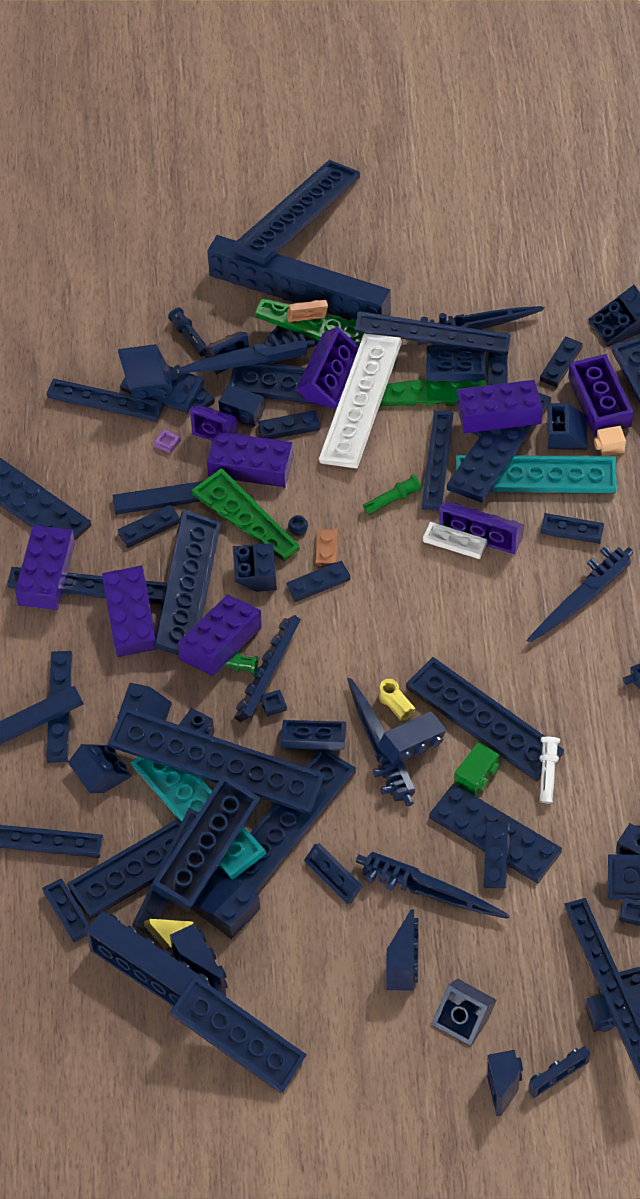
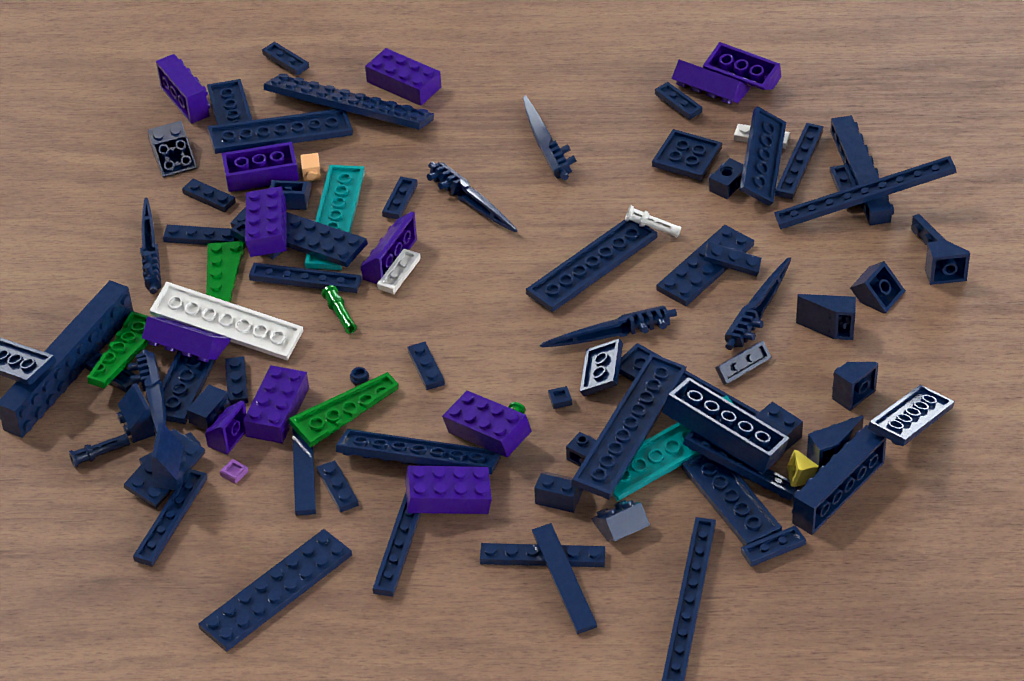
camera: 85 degrees left, 10 degrees down
(45, 567) = (386, 551): dark purple brick -> none
(255, 566) = (407, 397): dark blue slope -> none
(265, 671) = (532, 401): dark blue plate -> none
(291, 979) = (854, 383): none -> dark blue slope
(307, 310) = (113, 344): nougat plate -> none
(326, 547) = (388, 358): nougat plate -> none
(396, 700) = (562, 317): light yellow piece -> none
(412, 738) = (614, 300): dark blue brick -> none
(433, 333) = (163, 263): dark blue plate -> none
(454, 364) = (198, 255): dark blue plate -> none
(477, 769) = (644, 268): green brick -> none

